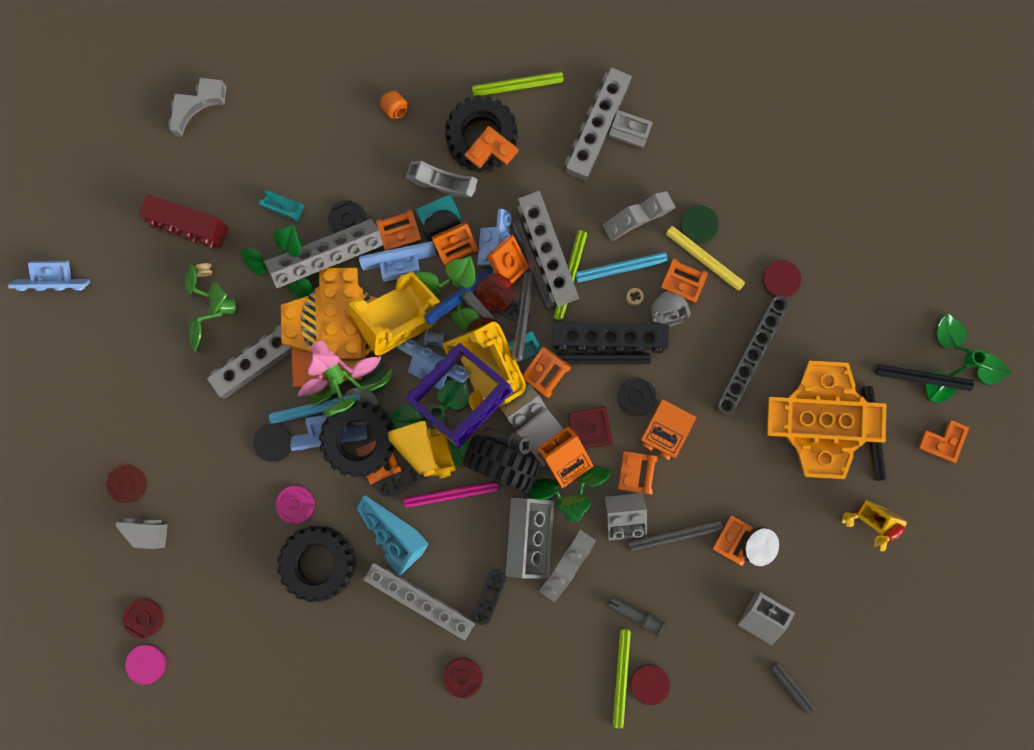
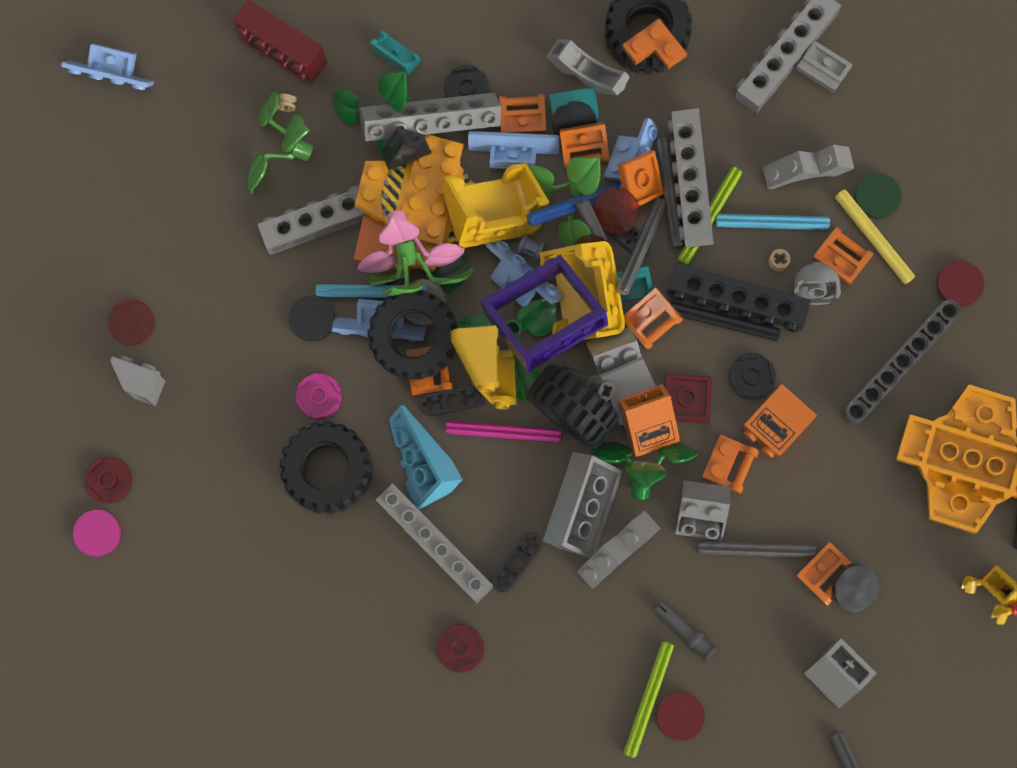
camera: 20 degrees right, 5 degrees down
(309, 286) = (404, 147): none -> black slope

